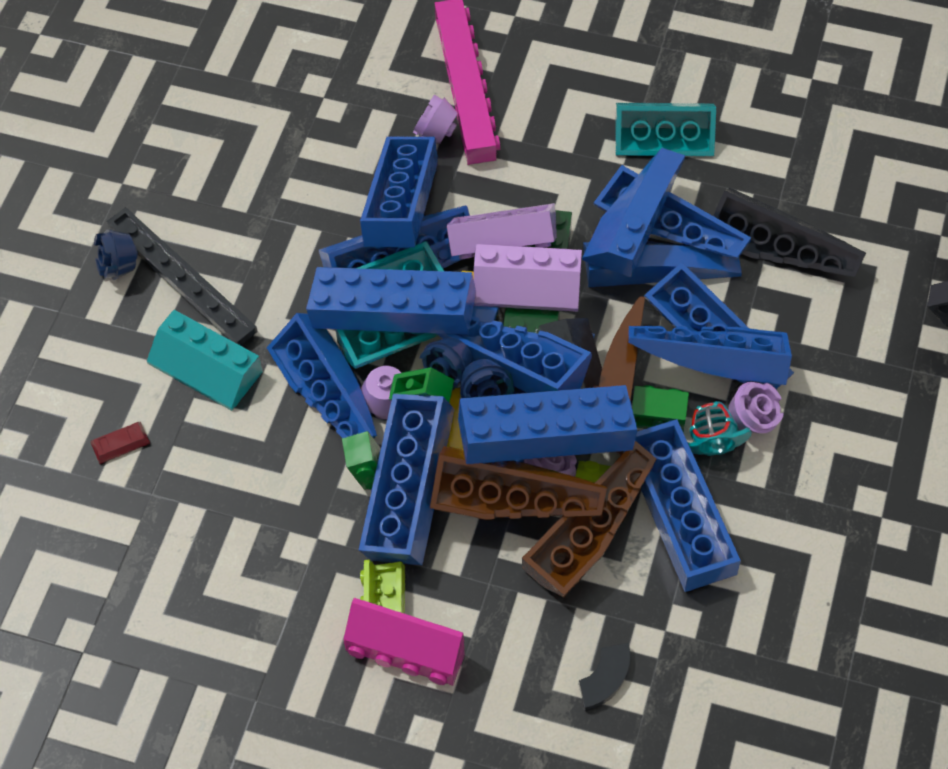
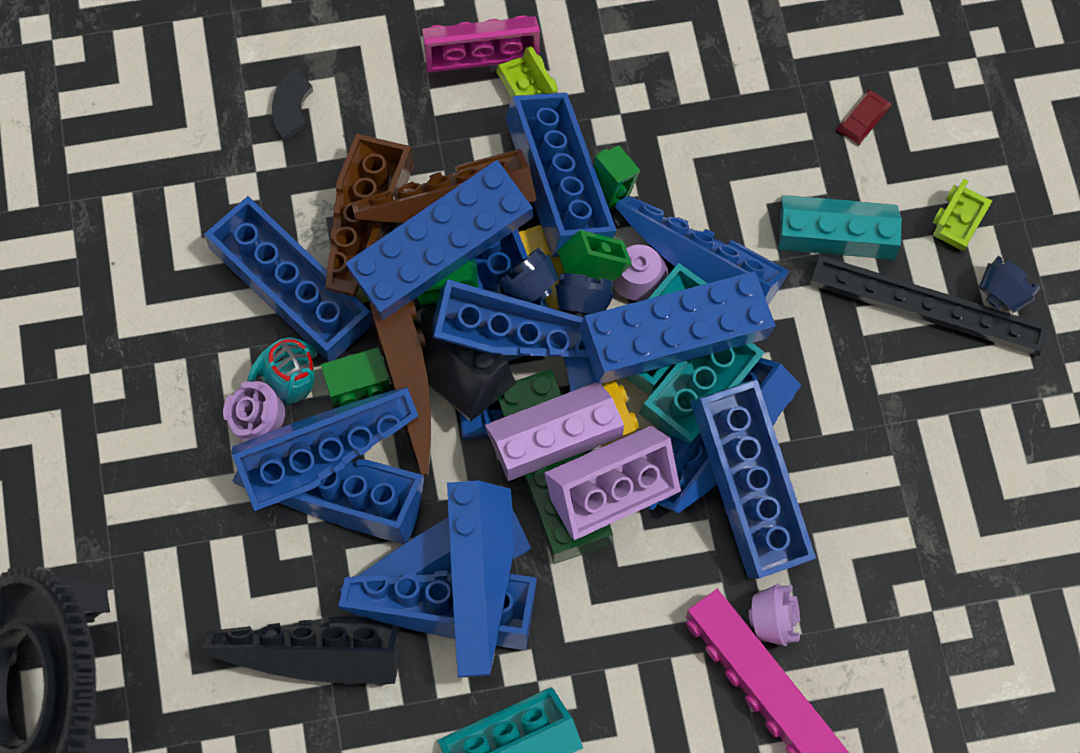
camera: 150 degrees right, 10 degrees up
(106, 325) = (961, 217): none -> lime bracket

